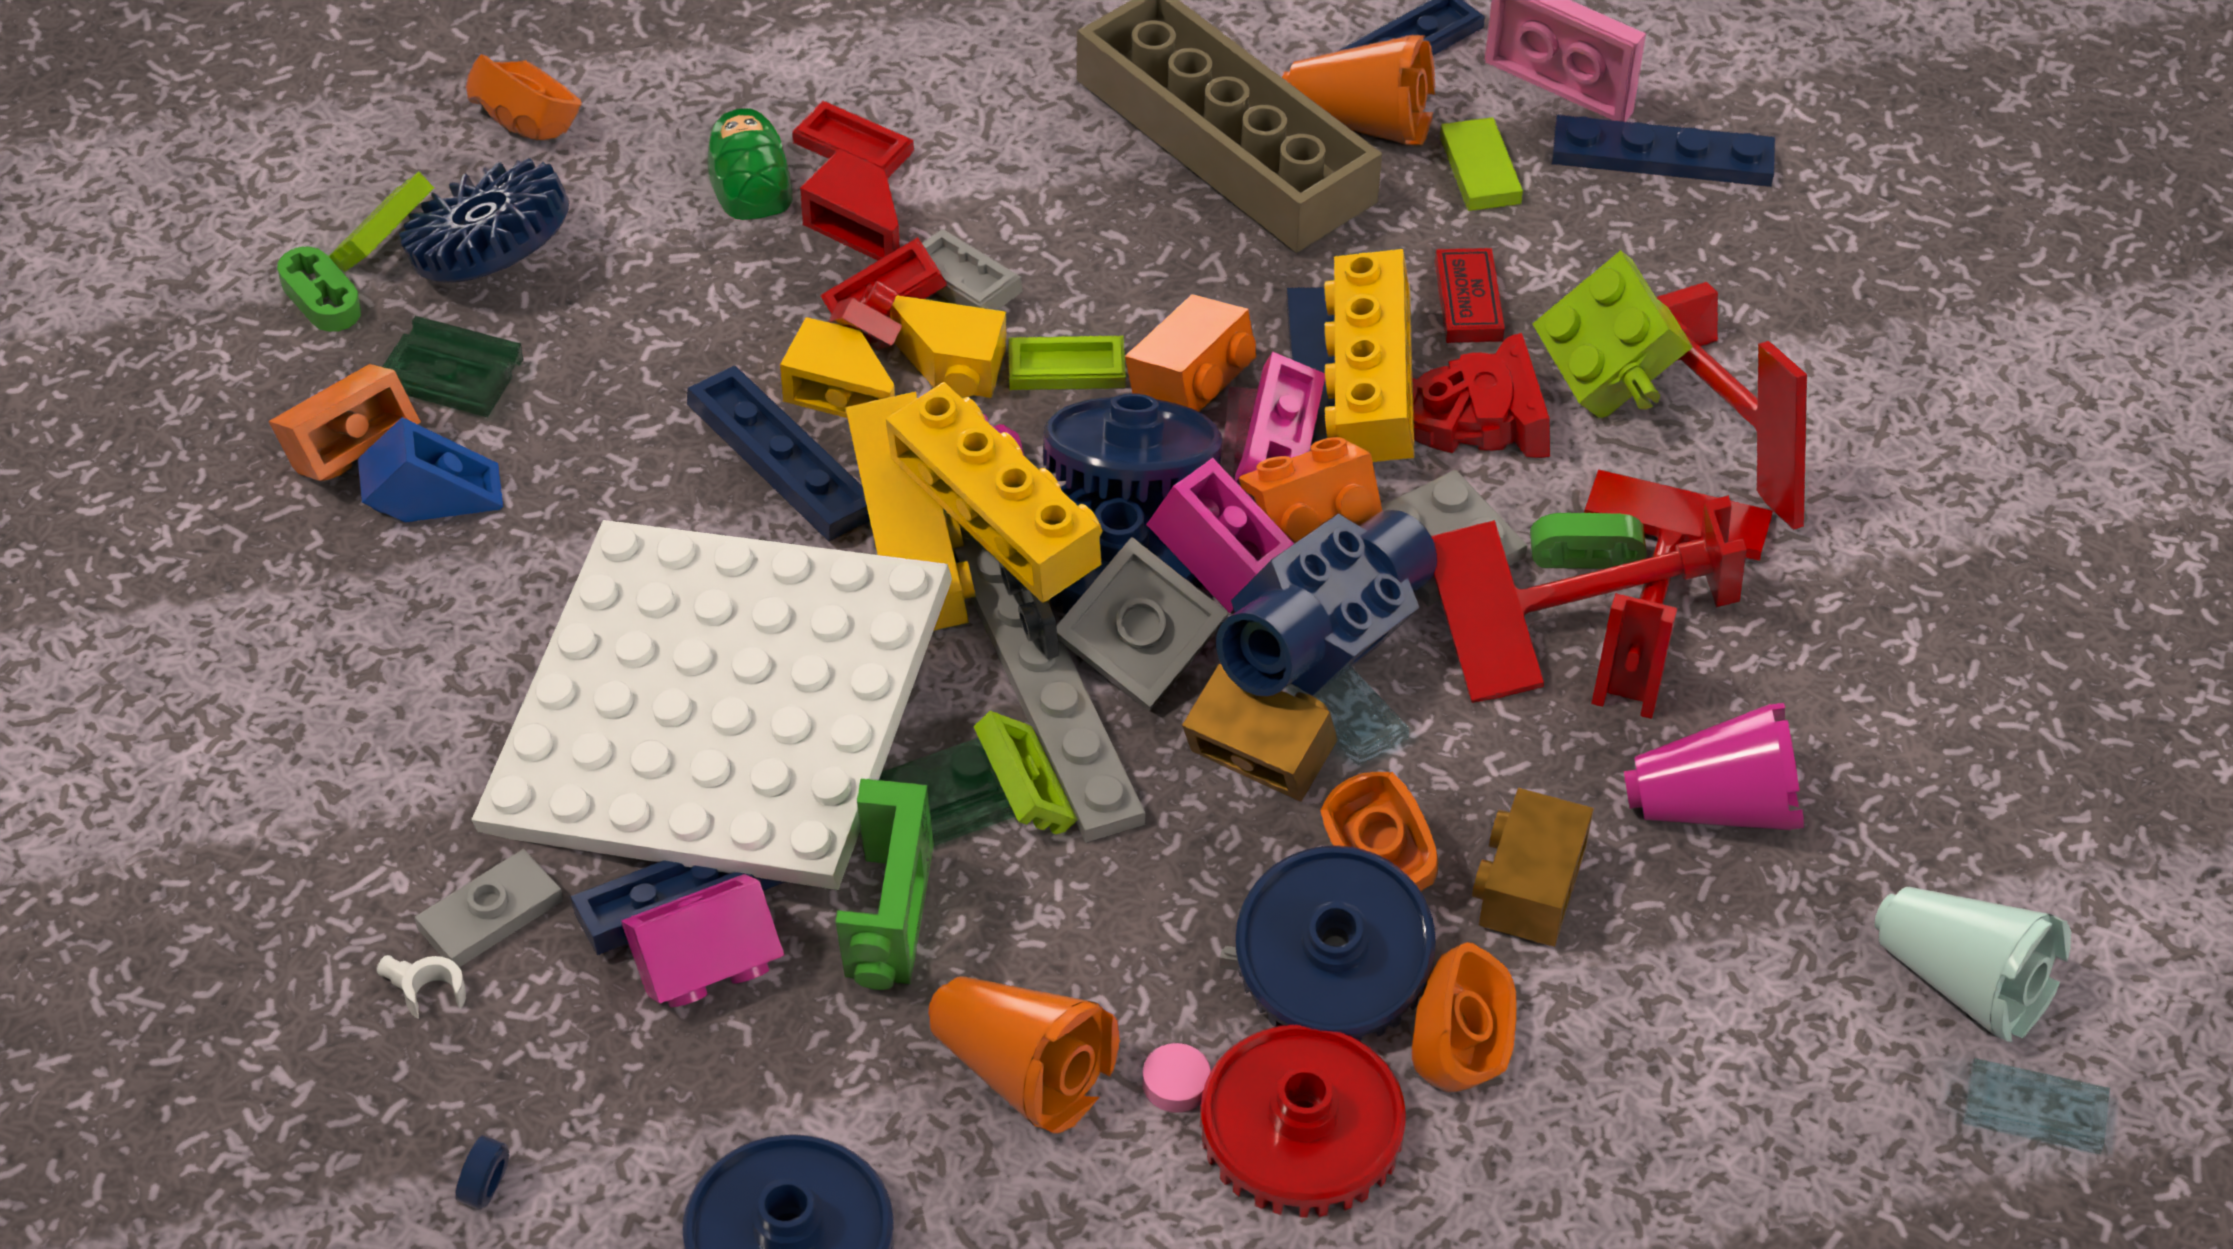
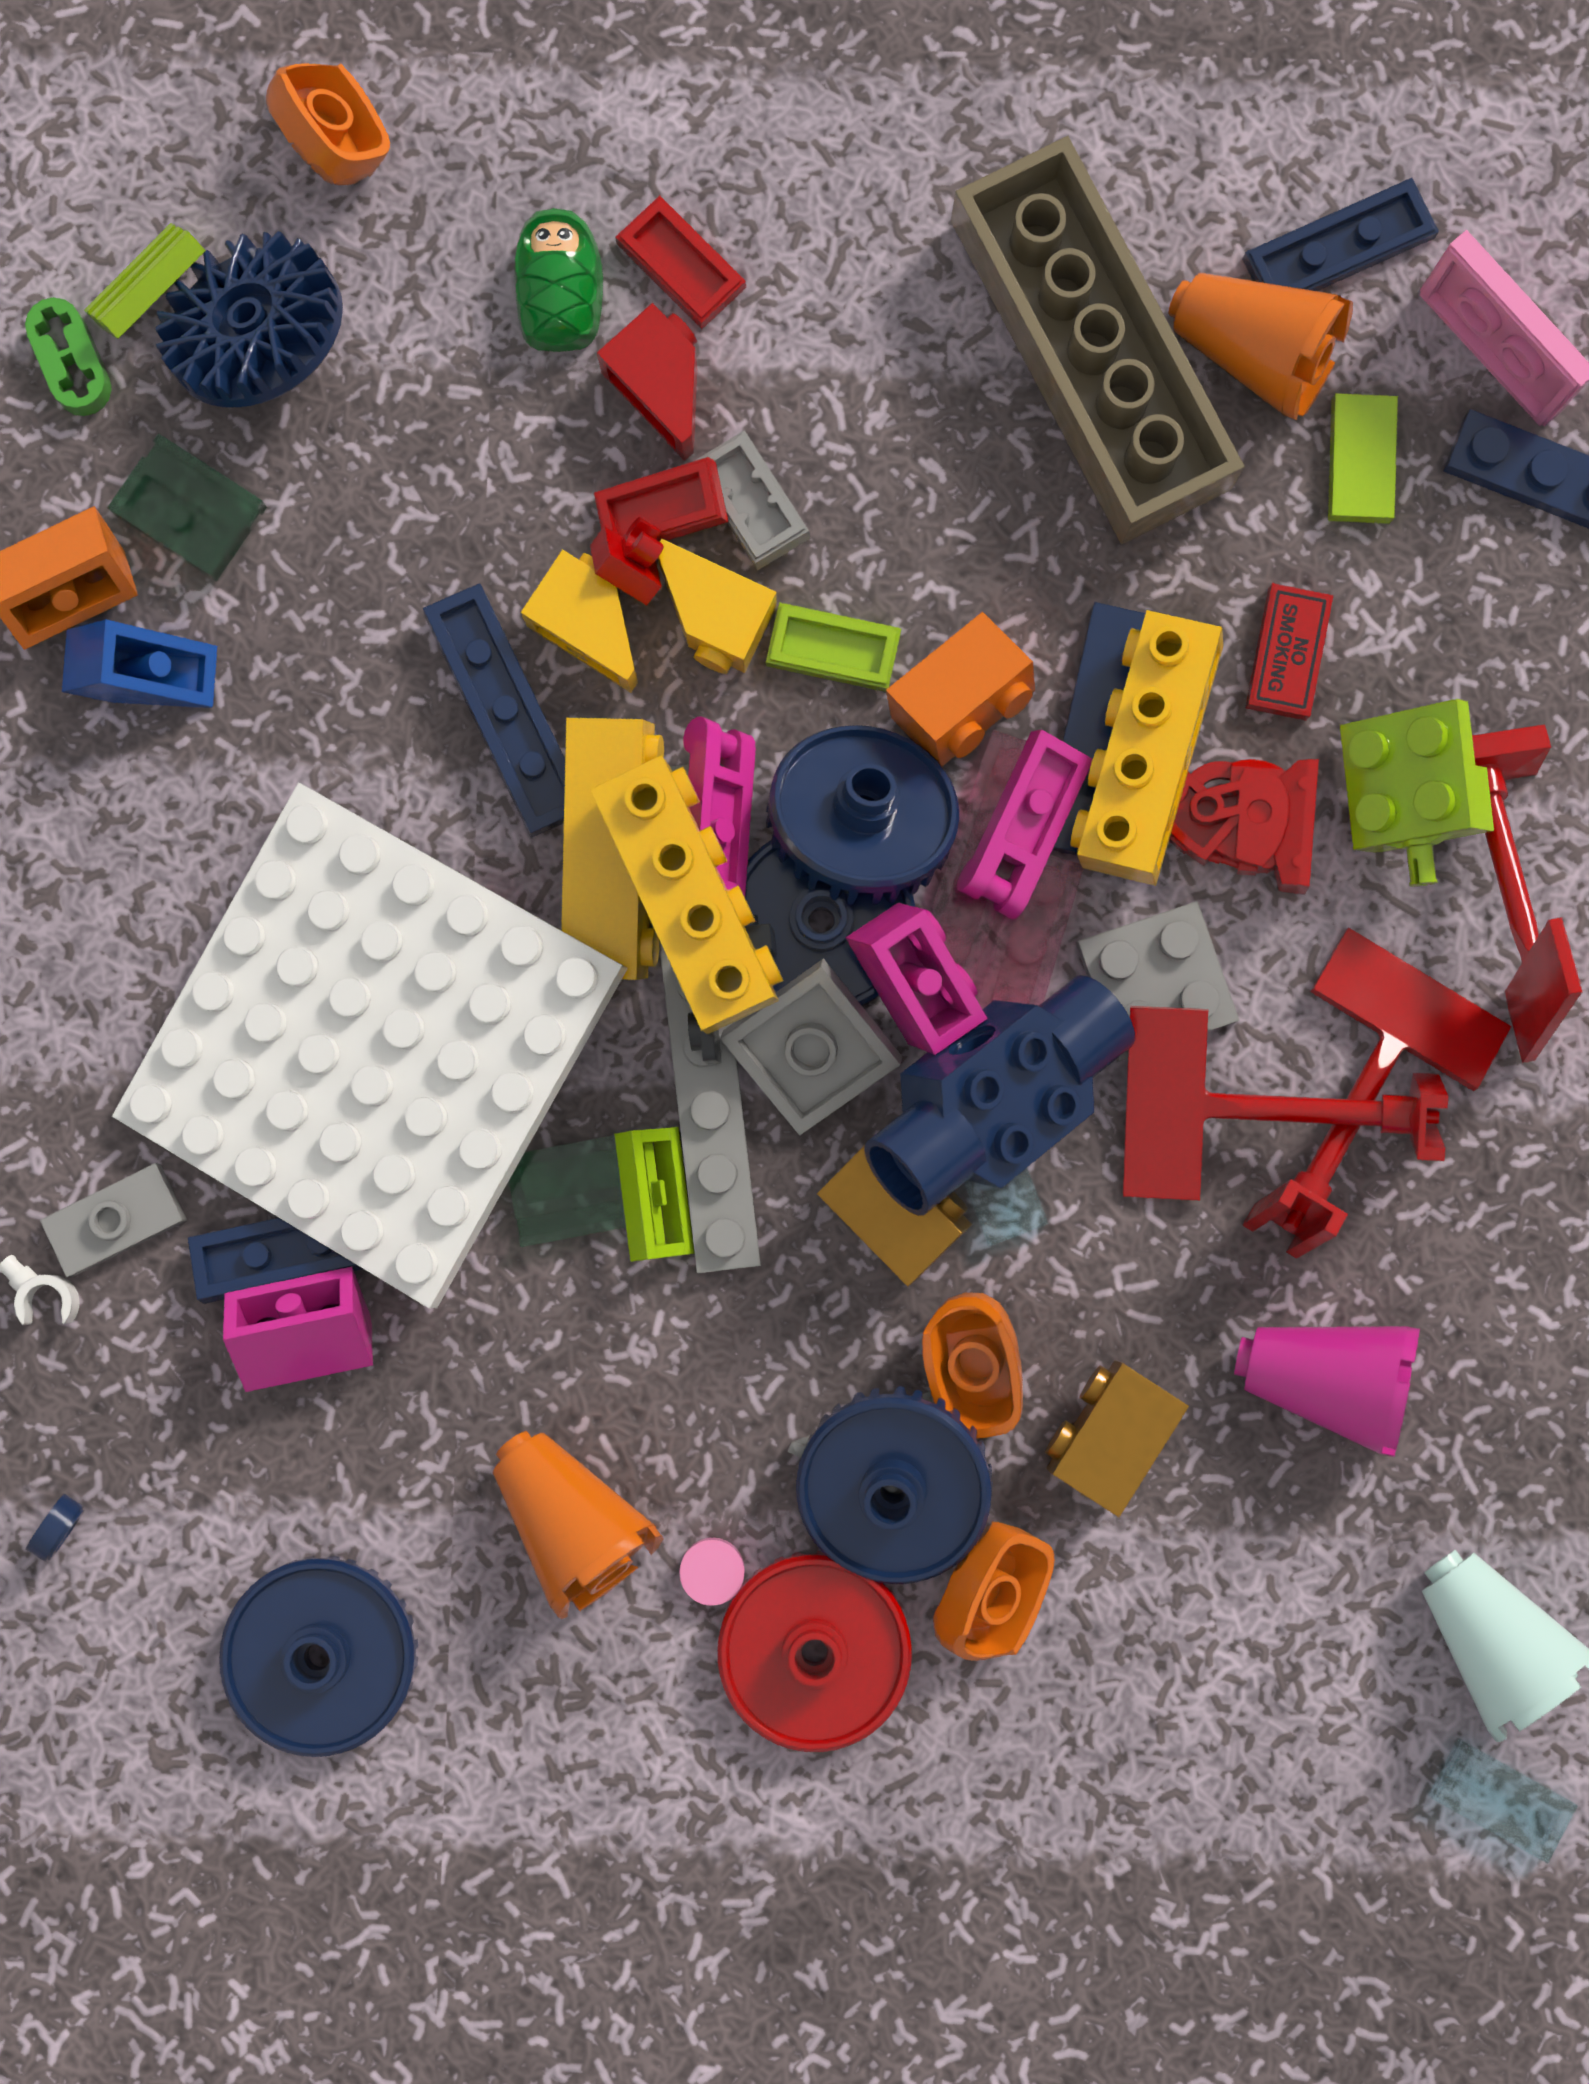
camera: 15 degrees right, 35 degrees up
(898, 833) = (511, 1277): bright green window -> none
(1315, 487) = (1028, 934): orange bracket -> none
(1587, 540) = (1303, 1034): bright green beam -> none

